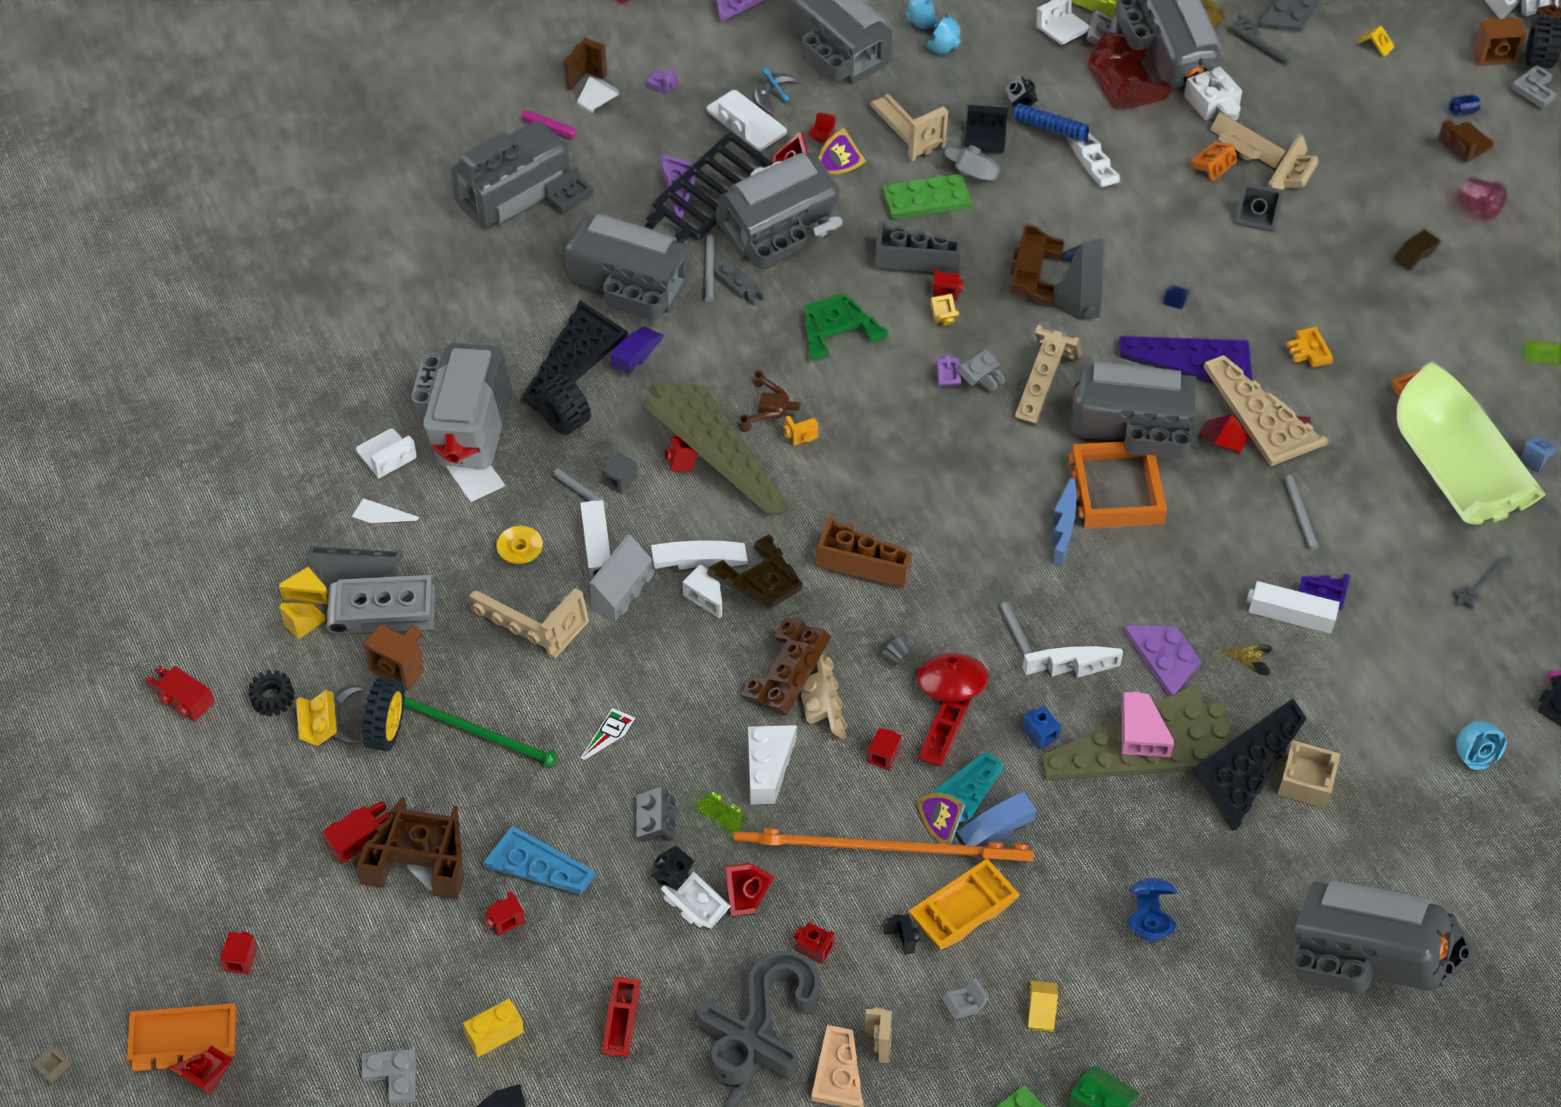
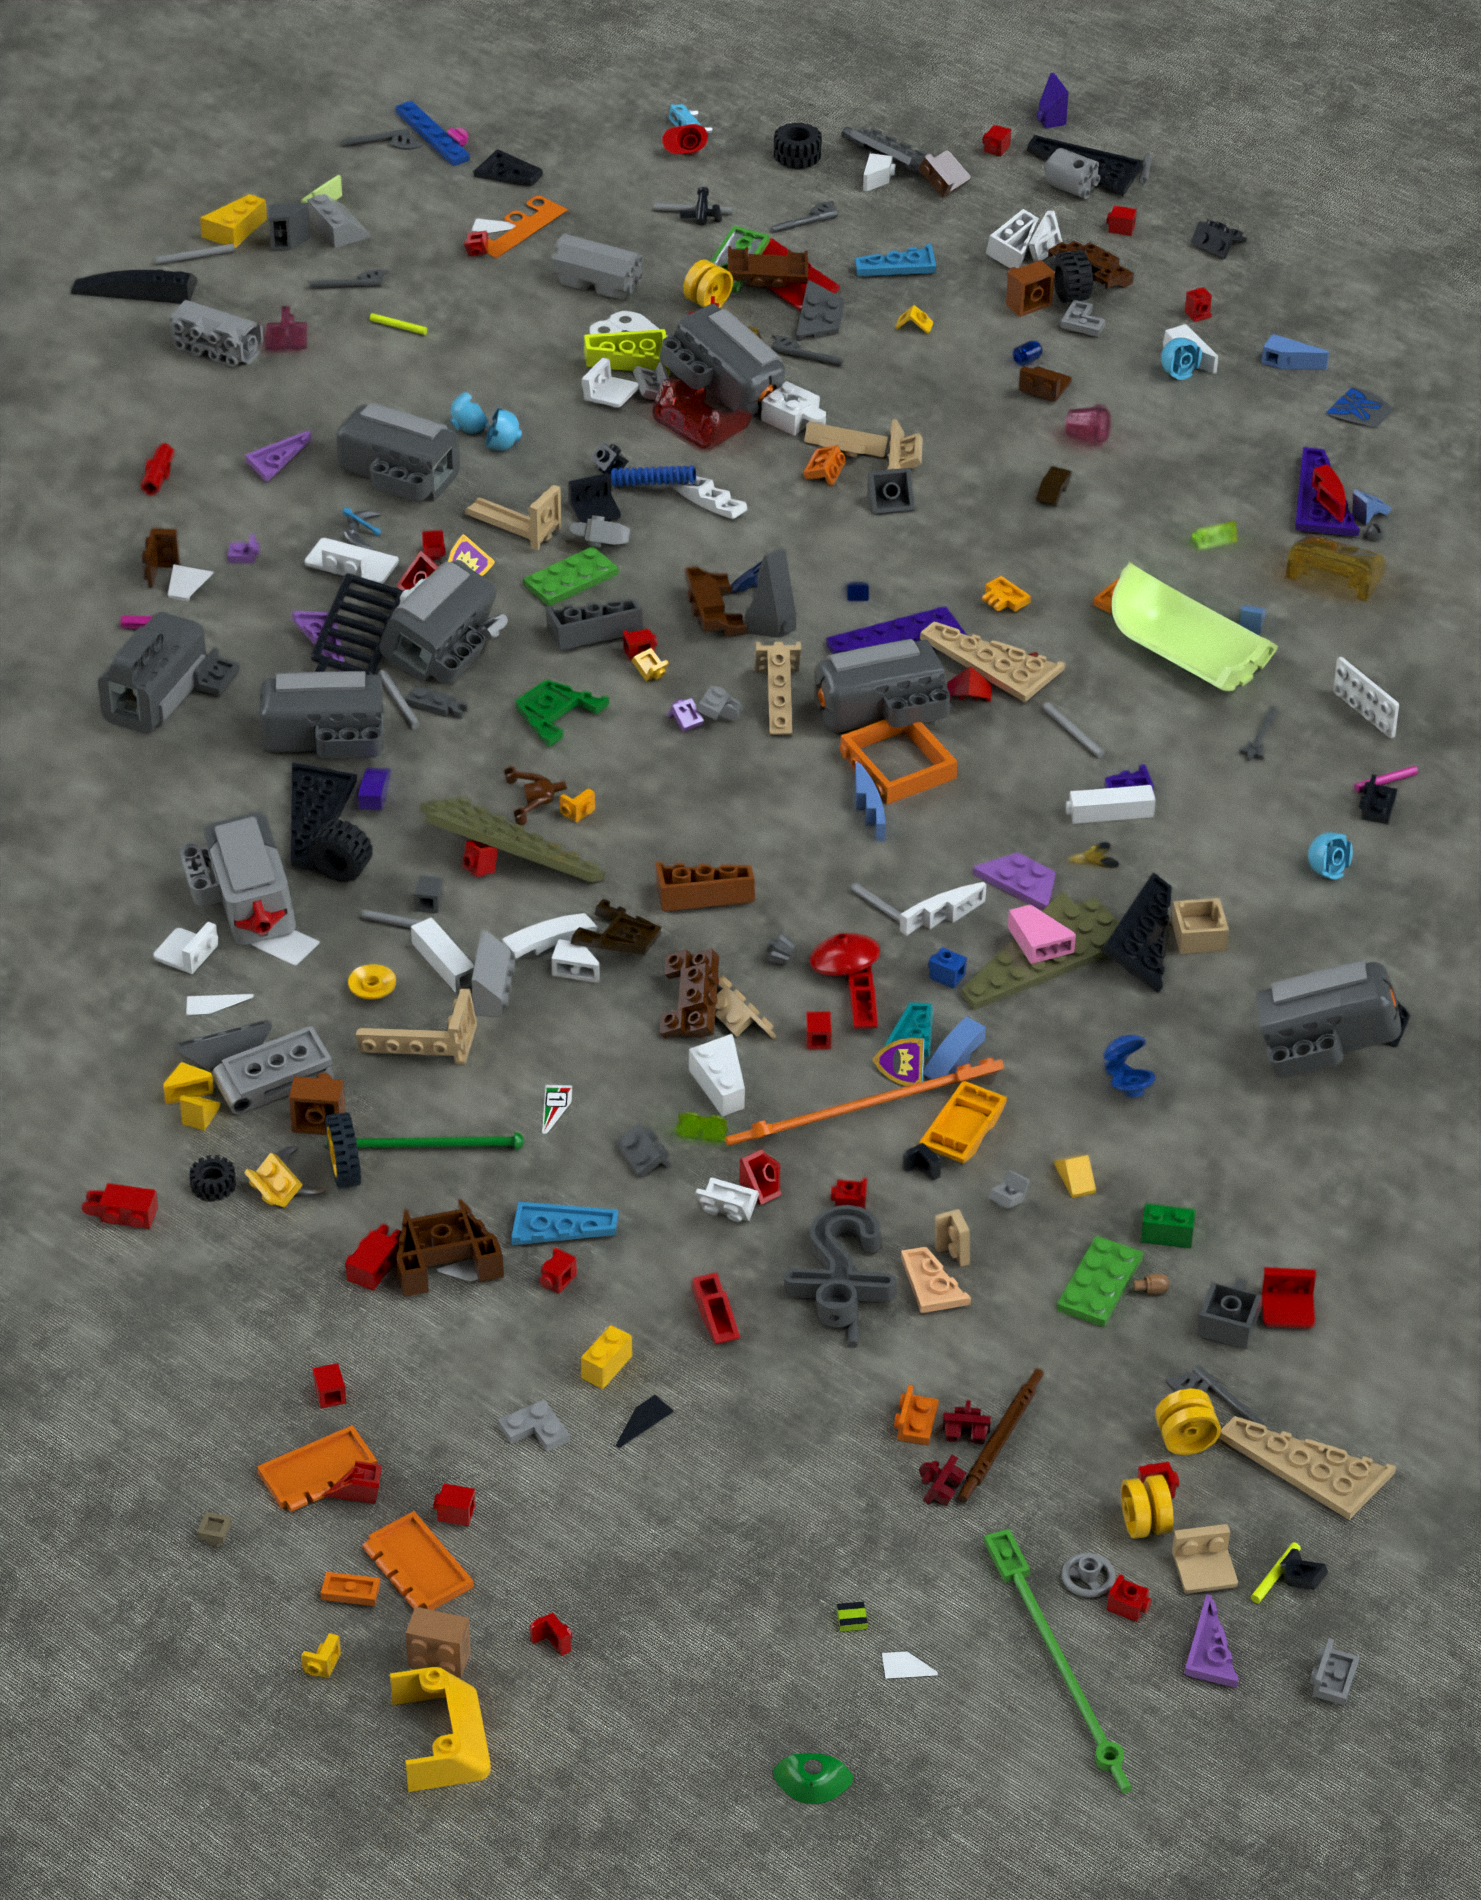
camera: 25 degrees left, 10 degrees down
(672, 867) = (686, 1180): black brick -> none

